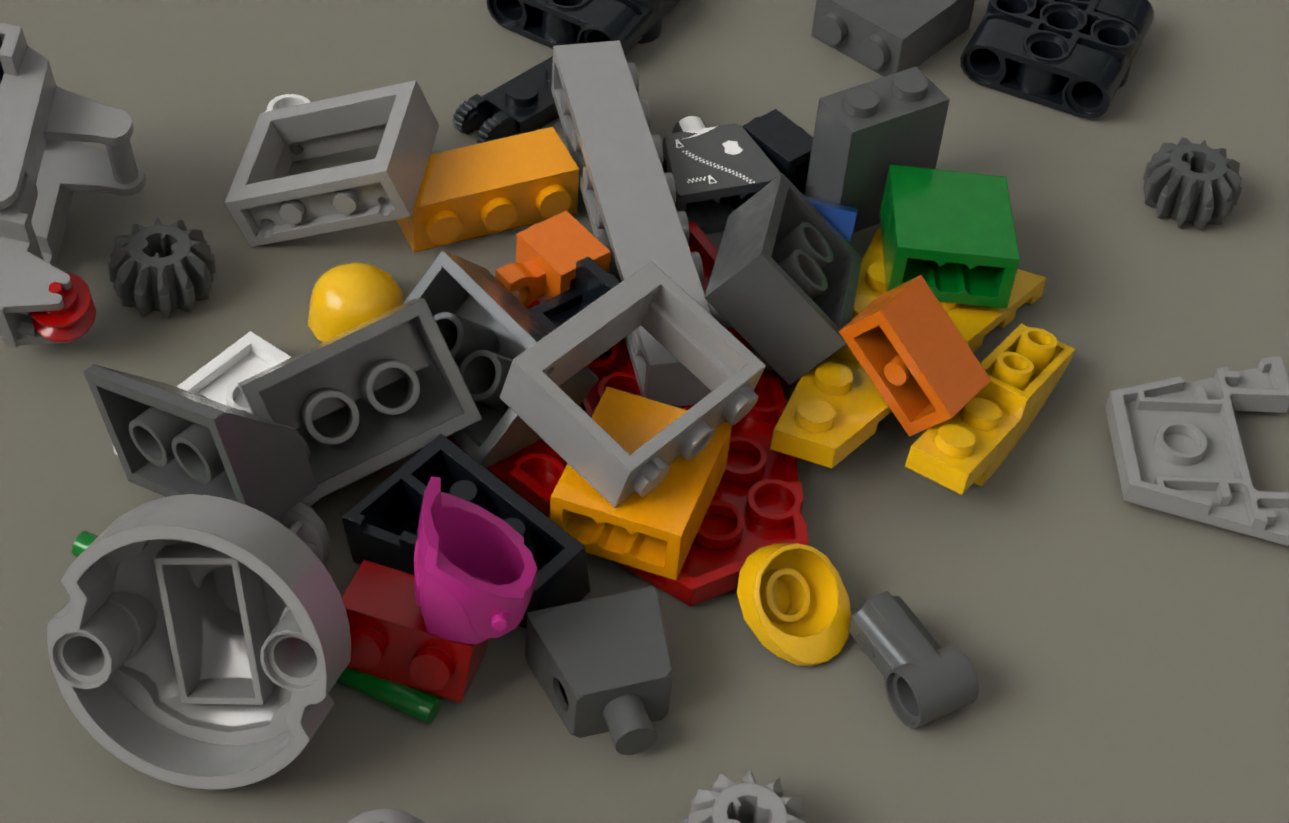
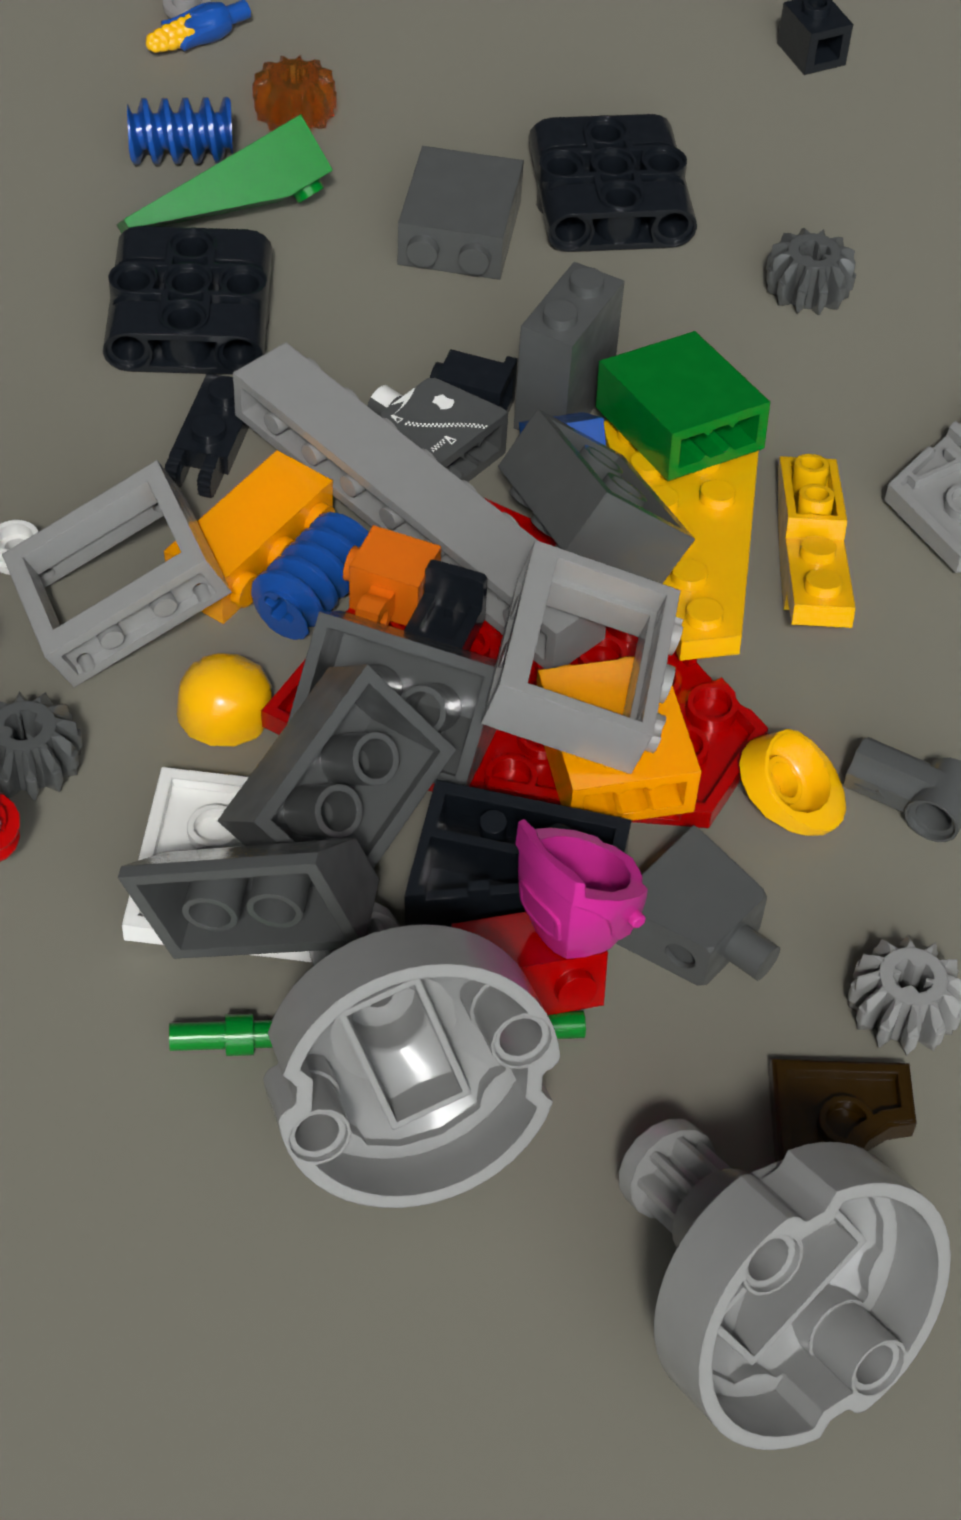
camera: 30 degrees left, 5 degrees up
(491, 235) = (307, 576): none -> blue piece
(915, 356) = (751, 524): orange brick -> none

